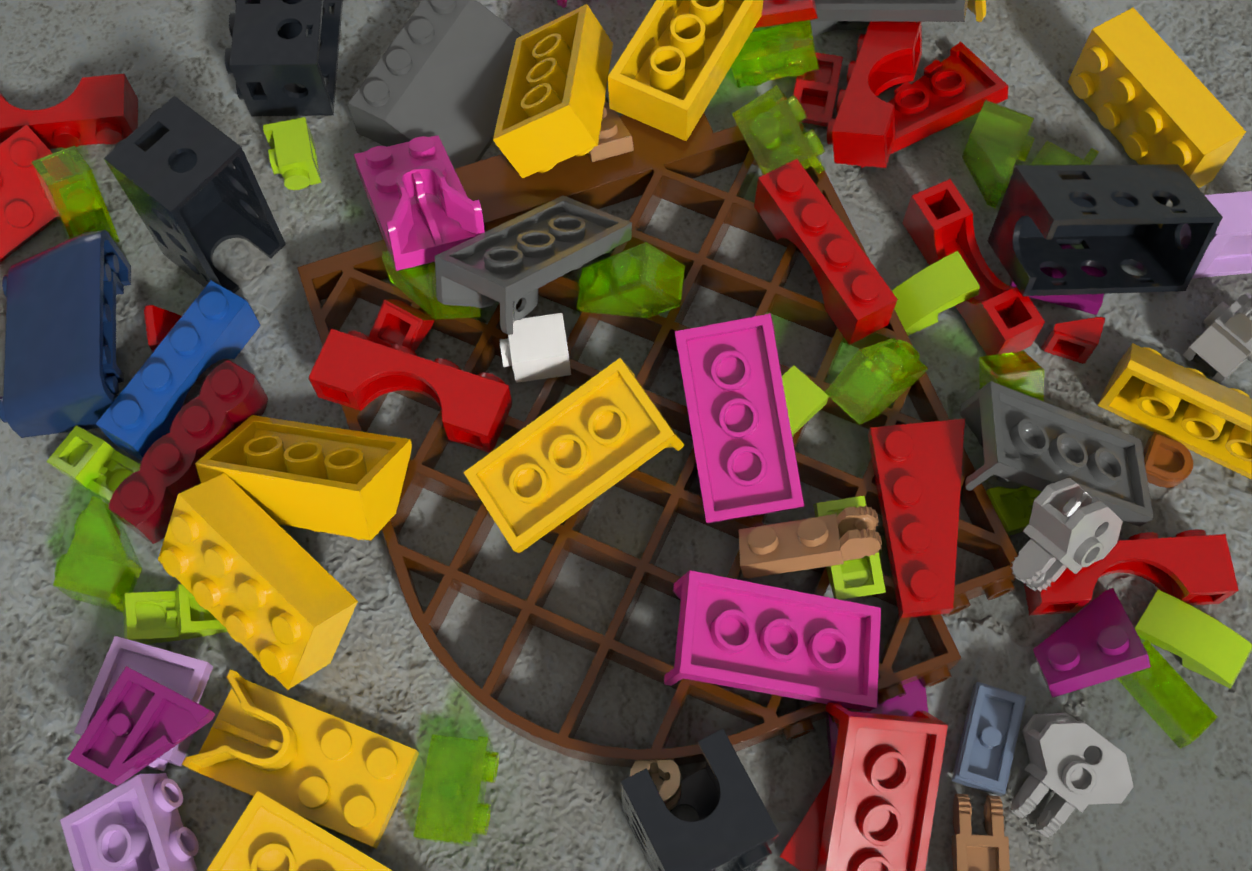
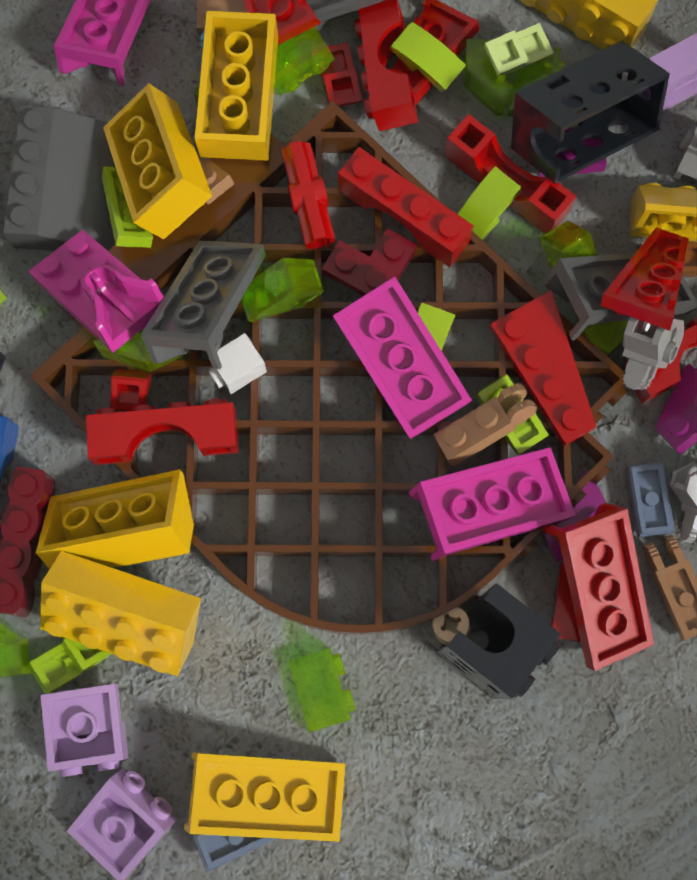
camera: 25 degrees left, 10 degrees up
(136, 727) = (91, 749): magenta wing -> none
(305, 761) = (210, 716): yellow plate -> none
(483, 151) = (124, 230): none -> lime plate
(570, 455) = (298, 433): yellow plate -> none
(713, 195) = (308, 195): none -> red piece
(731, 297) = (367, 273): none -> dark red plate
(776, 132) = (333, 130): clear neon green bracket -> none
(876, 378) = (480, 287): clear neon green slope -> none
(930, 99) = (428, 55): none -> lime slope
(1044, 135) = (518, 50): none -> yellowish green slope
(1074, 339) = (599, 196): red slope -> none
(1096, 454) = (650, 280): none -> red wing

